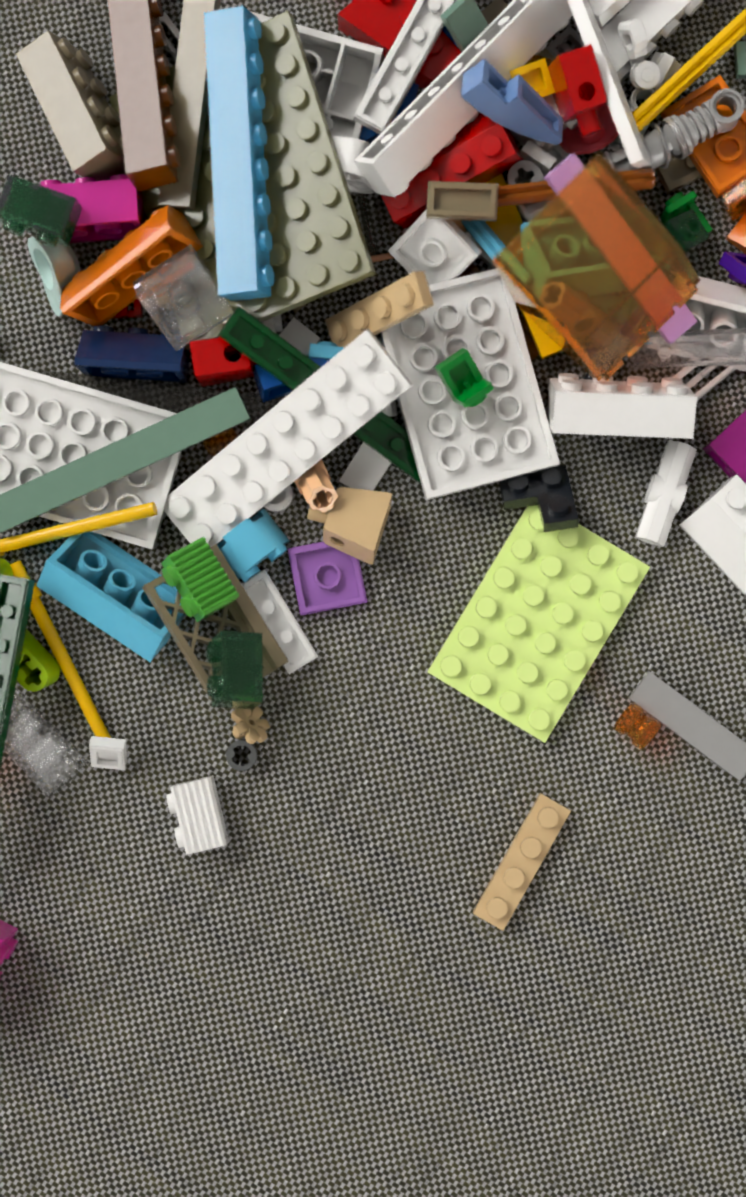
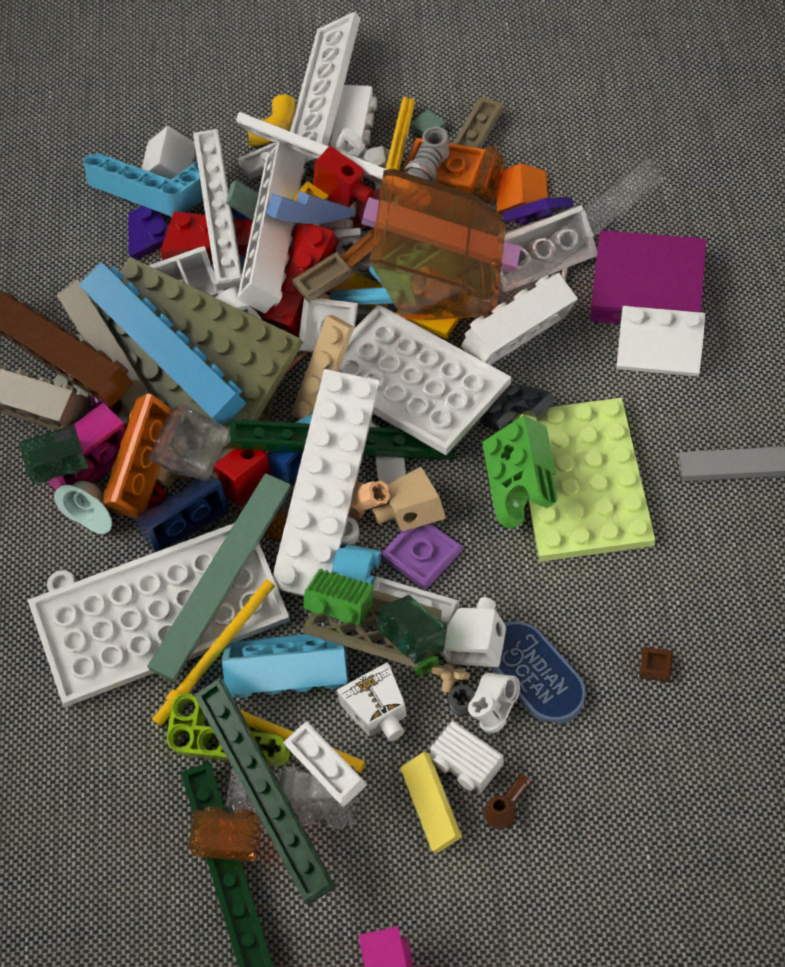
camera: 35 degrees left, 30 degrees down
(55, 743) = (325, 764): none -> white tile
(108, 753) = (368, 764): white tile -> none
(136, 829) = (431, 802): none -> light yellow tile
(162, 700) = (375, 702): none -> white torso
(201, 879) = (505, 818): none -> reddish brown bar
(267, 781) = (494, 697): none -> white piece
(300, 709) = (475, 636): none -> white torso
(327, 781) = (547, 682): none -> tile
(438, 859) = (656, 664): none -> reddish brown tile
(463, 379) = (408, 368): green bracket -> none
(477, 580) = (520, 469): none -> bright green brick
(521, 861) = (711, 624): tan plate -> none
(637, 725) = (702, 486): clear orange wheel -> none
(665, 493) = (591, 353): white piece -> none

